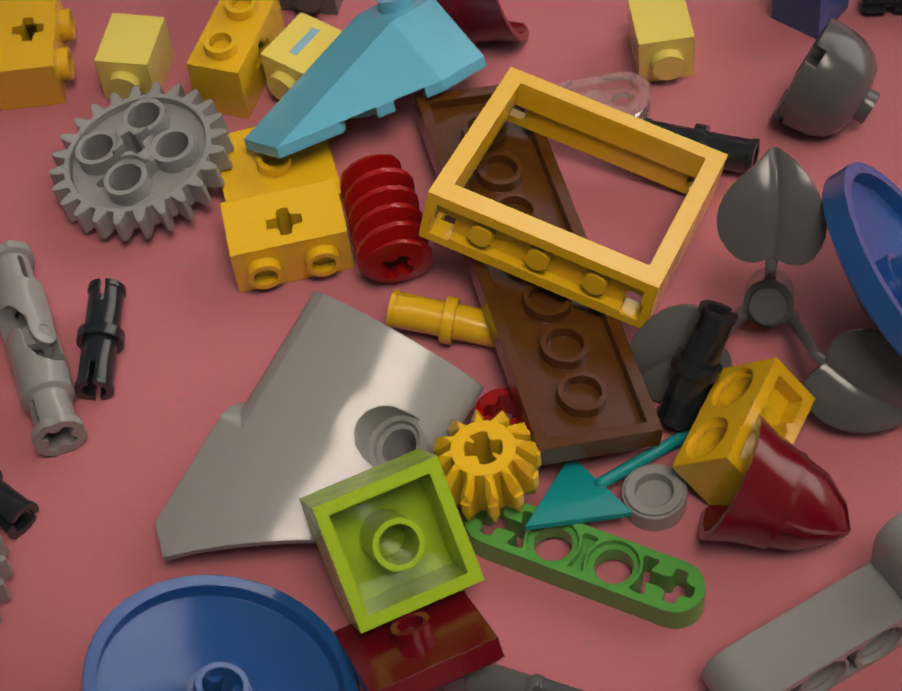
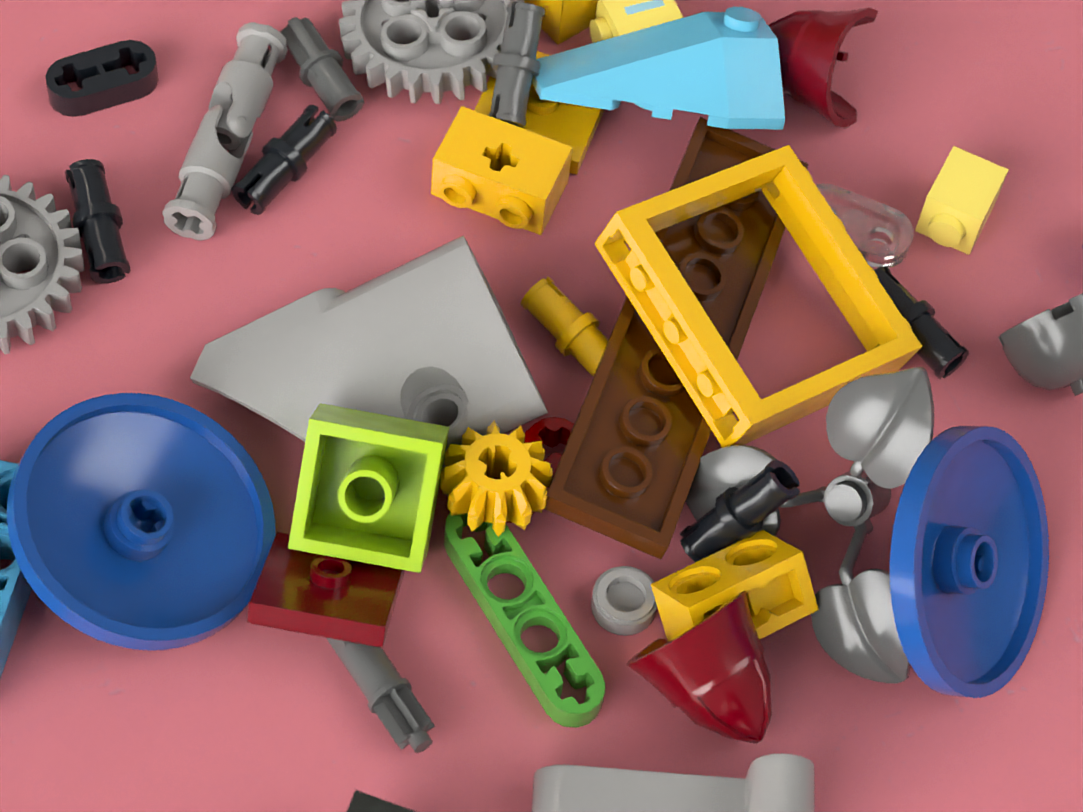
camera: 20 degrees right, 5 degrees up
(74, 250) = (322, 69): none -> dark grey axle
(239, 141) = (516, 63): none -> dark grey pin
(384, 219) = (591, 194): red piece -> none
(582, 498) = (562, 559): teal piece -> none

